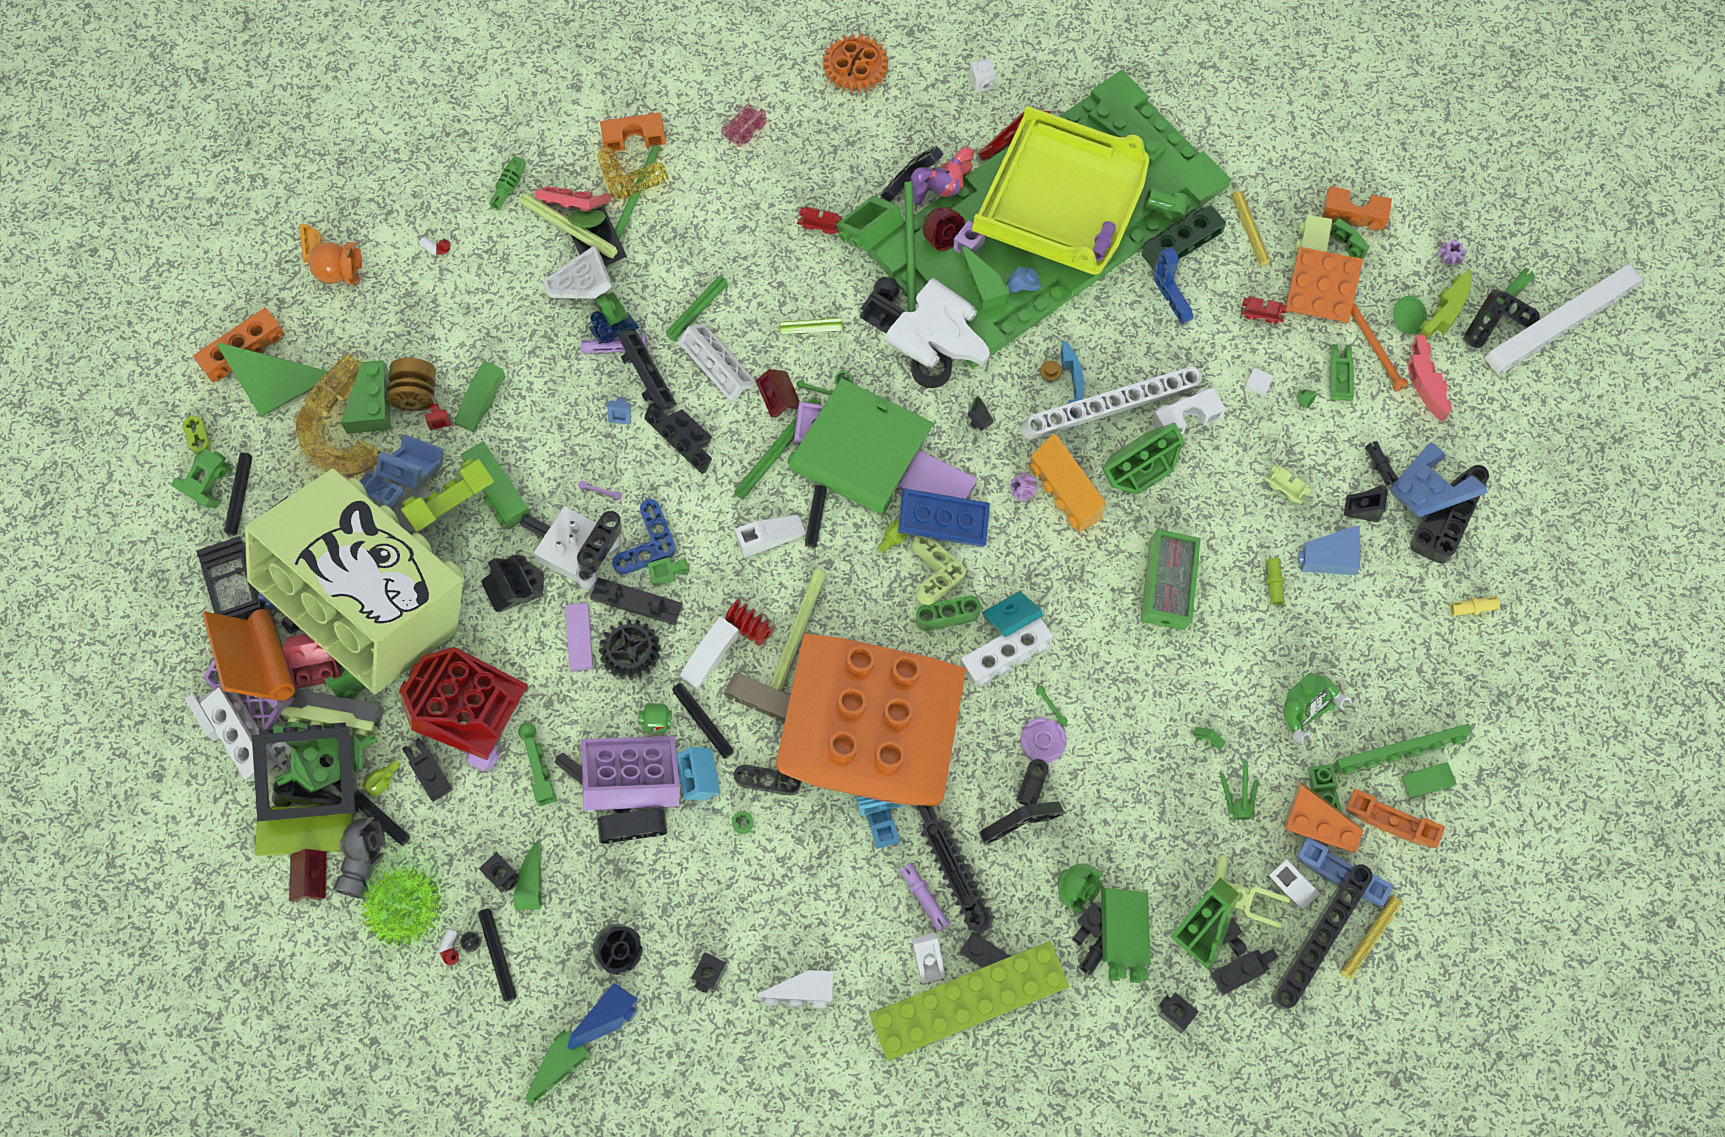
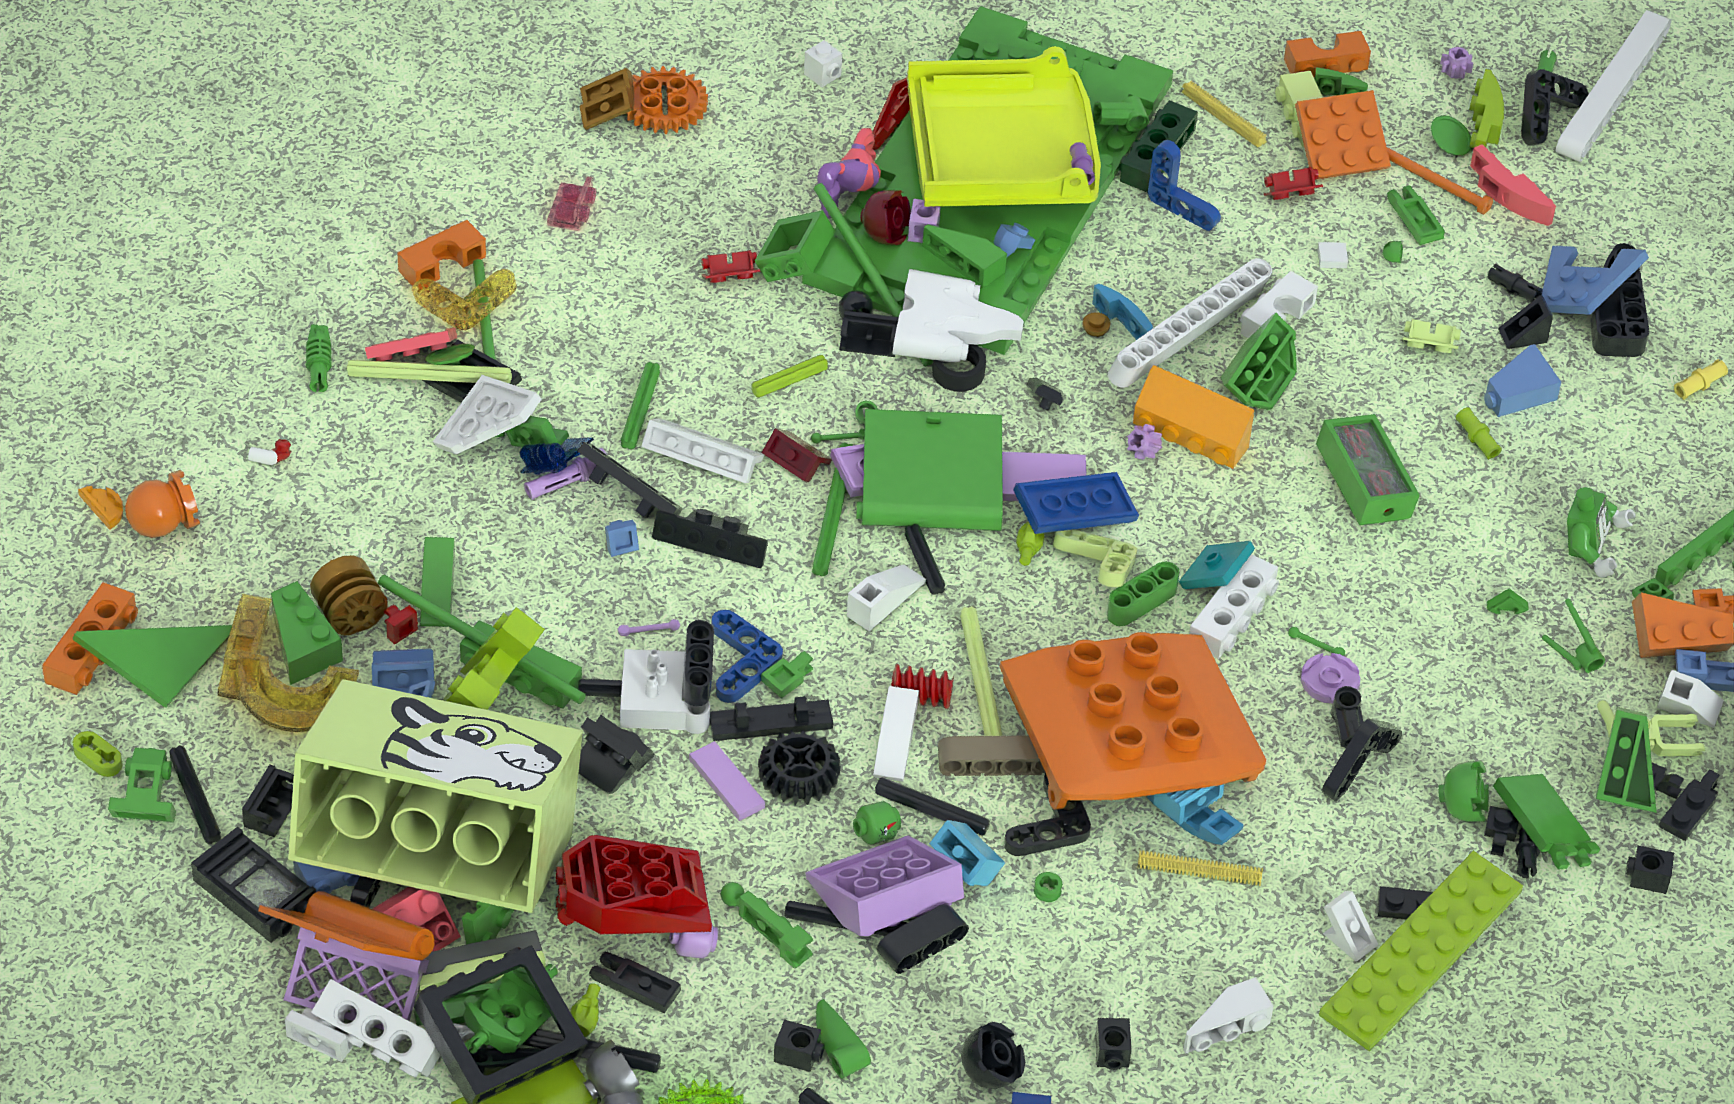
camera: 30 degrees left, 20 degrees down
(494, 501) = (478, 637): none -> bright green piece
(815, 48) = (607, 98): none -> pearl gold slope
(856, 857) = (1200, 867): none -> light yellow axle
(919, 888) = (1292, 869): lavender pin -> none
(923, 159) = (807, 174): black beam -> none
(956, 870) = (1320, 831): black gear -> none
(1329, 707) = (1614, 529): bright green hinge -> none

